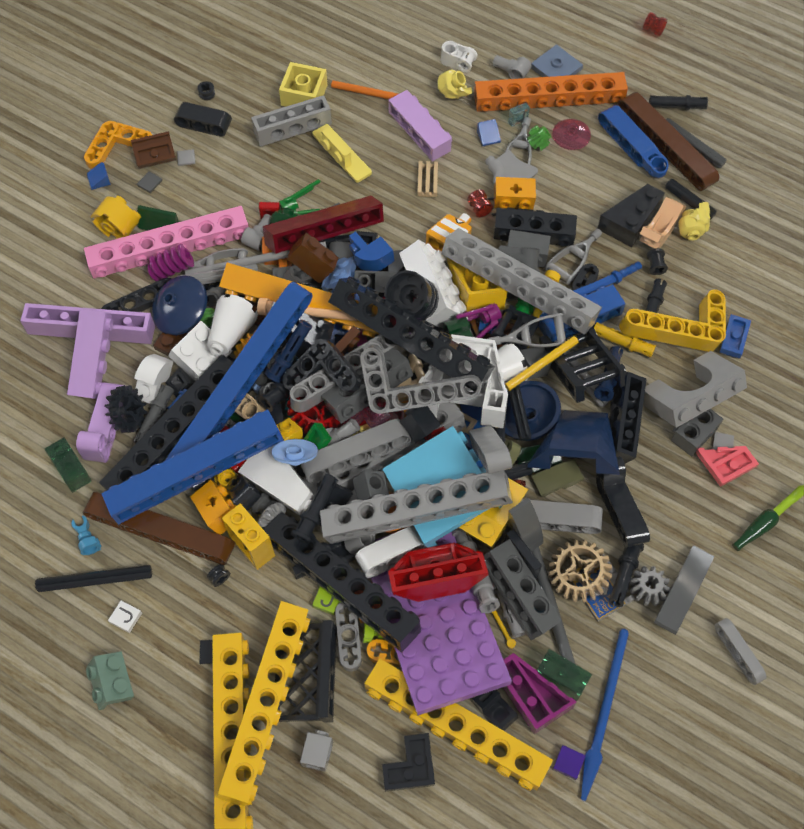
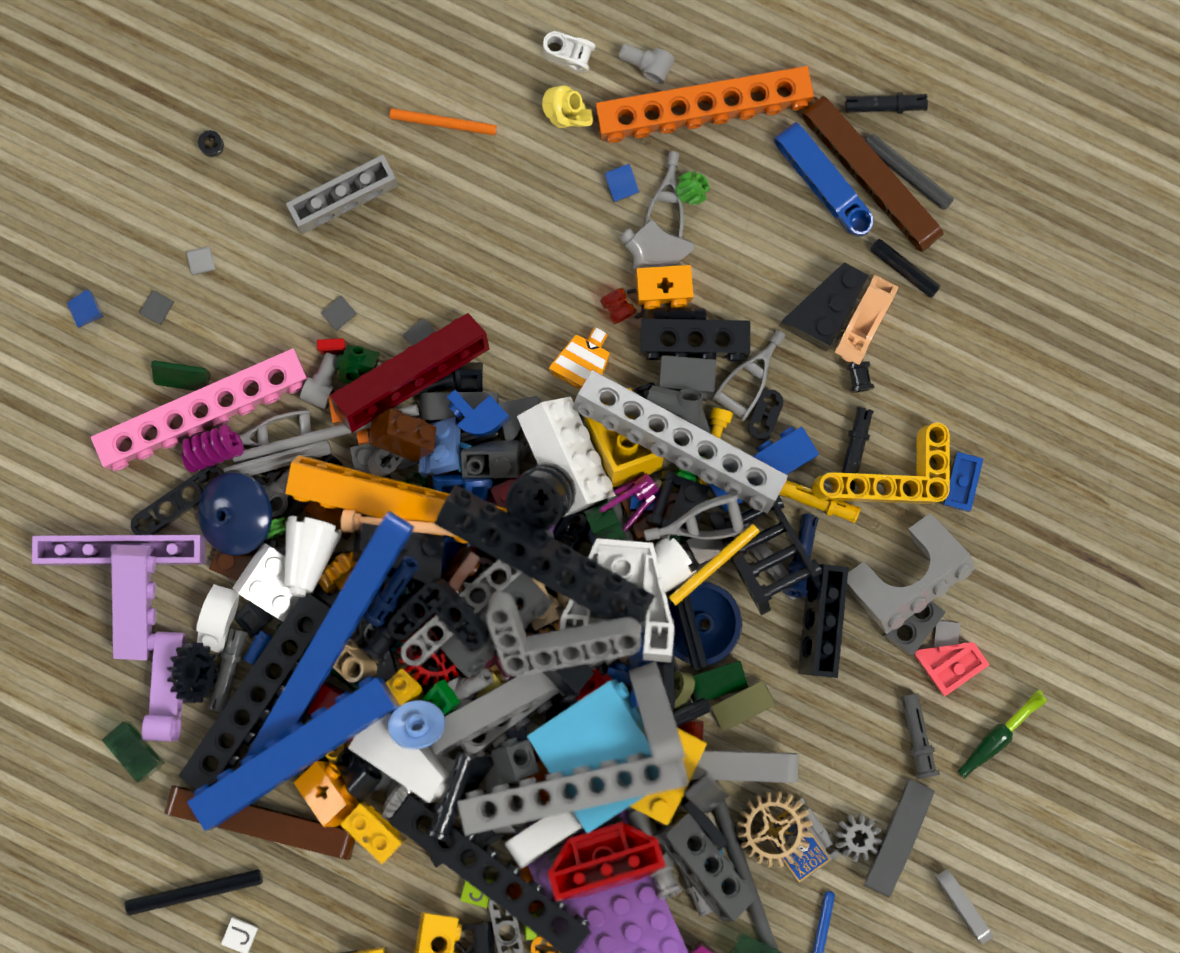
camera: 10 degrees left, 20 degrees up
(87, 543) = (178, 851): dark azure piece -> none
(114, 136) = (94, 236): light orange beam -> none
(115, 217) = (124, 384): yellow brick -> none
(153, 150) = (154, 259): reddish brown plate -> none
(203, 119) = (214, 198): black beam -> none
(218, 575) = (343, 875): black bush -> none
(277, 194) = (338, 313): none -> dark grey piece
(290, 202) = (357, 329): green plant -> none
(302, 84) = (350, 132): light yellow brick -> none
(342, 153) = (418, 235): light yellow bracket -> none
(420, 125) = (523, 180): lavender brick -> none
(427, 166) = (541, 244): tan tile -> none
(511, 643) = (698, 920): yellow hinge -> none
(518, 113) = (661, 148): clear light blue tile -> none
(556, 63) = (711, 50): sand blue plate -> none
(571, 134) = (737, 182): clear pink dish -> none
(579, 436) = (767, 665): dark blue wedge -> none
(614, 277) = (804, 407): blue sword -> none
(622, 507) = (821, 741): black beam -> none
(628, 562) = (832, 811): black pin -> none
(695, 222) = (910, 311): light yellow head -> none
(702, 523) = (921, 749): none -> dark grey pin

